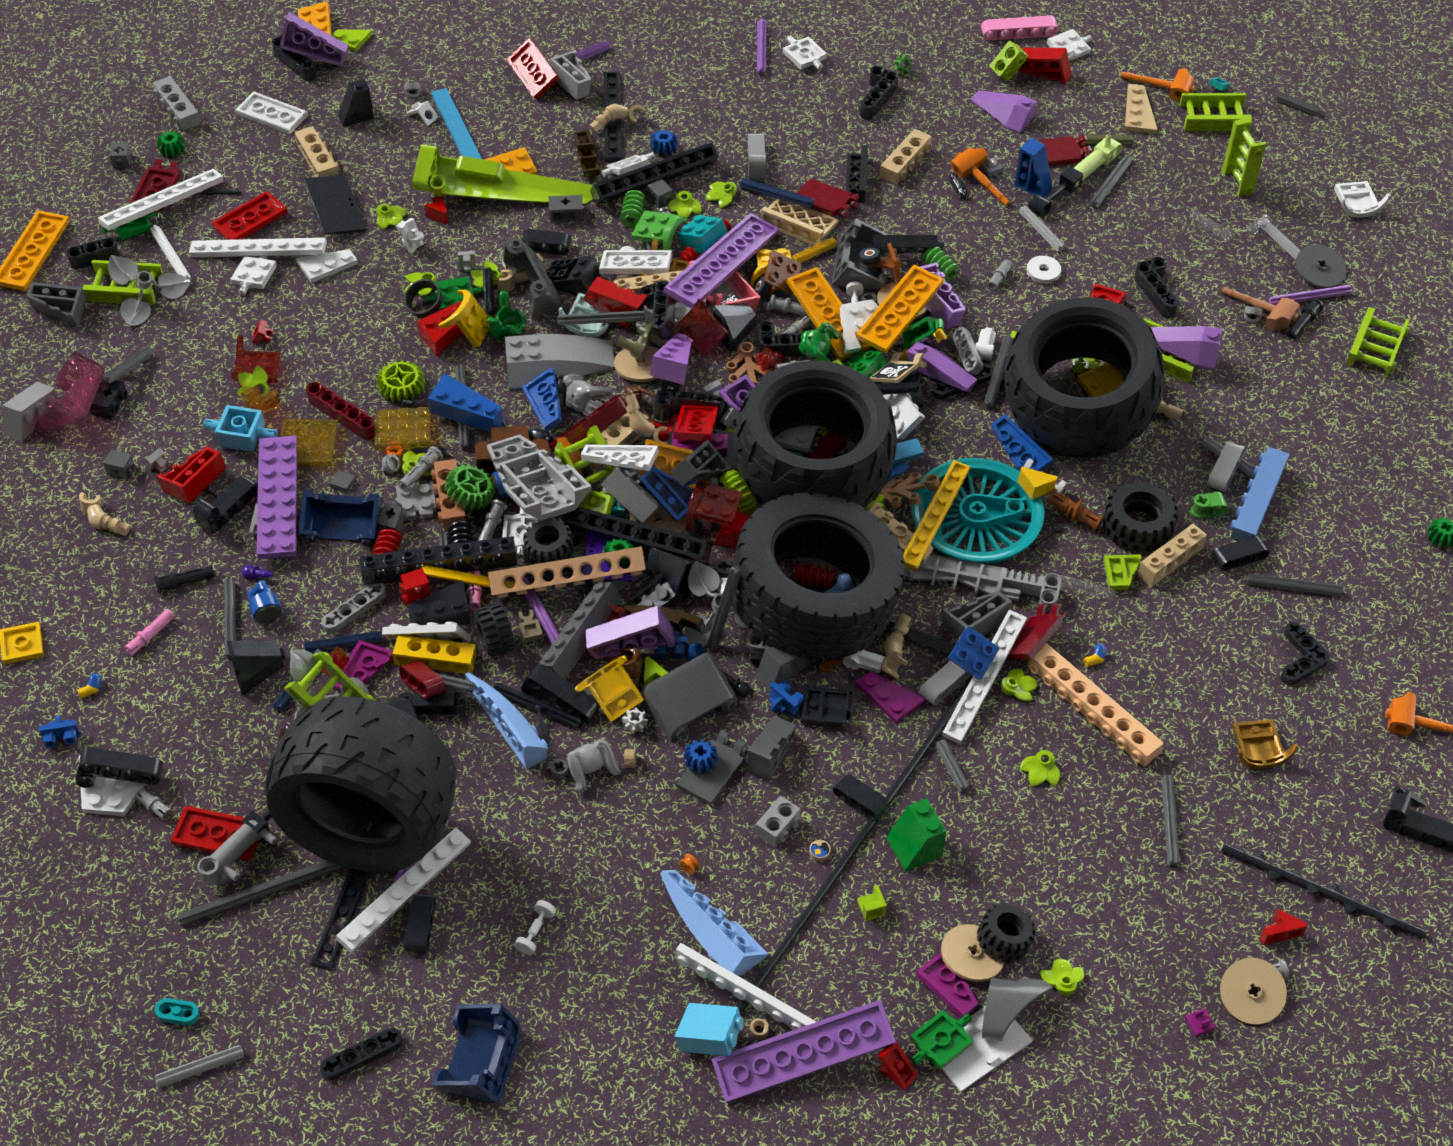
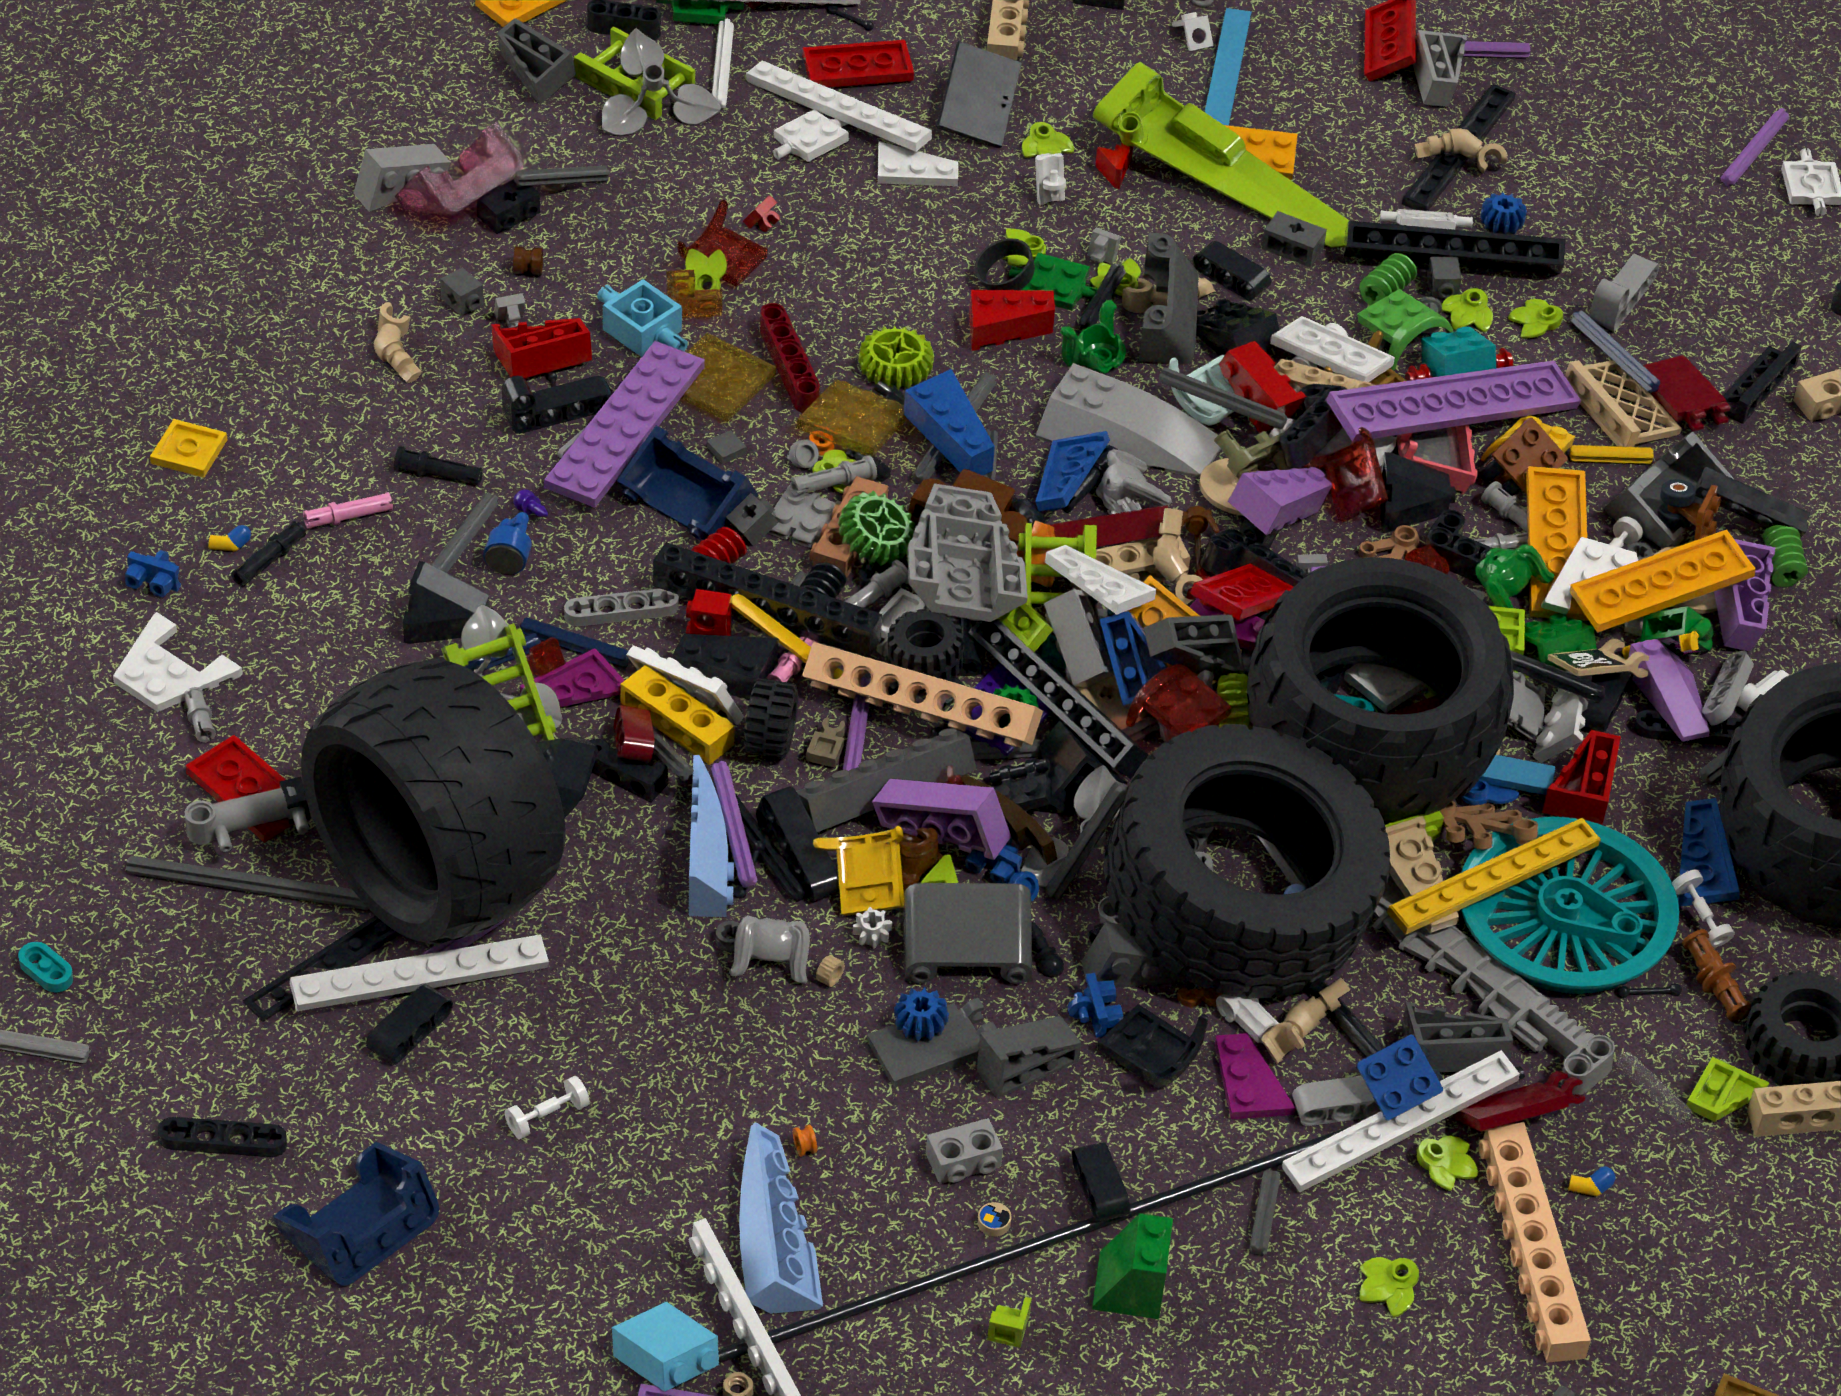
camera: 30 degrees right, 5 degrees down
(118, 766) = (184, 642): black beam -> none
(123, 676) = (277, 546): none -> black pin
(144, 426) = (528, 260): none -> reddish brown wheel
(470, 319) = (1041, 318): yellow piece -> none
(519, 704) = (734, 824): none -> medium lavender axle
(586, 153) = (1381, 180): dark brown slope -> none
(813, 576) = (1261, 870): red piece -> none
(939, 438) = (1586, 781): none -> red wedge
(1036, 482) = (1681, 907): yellow slope -> none

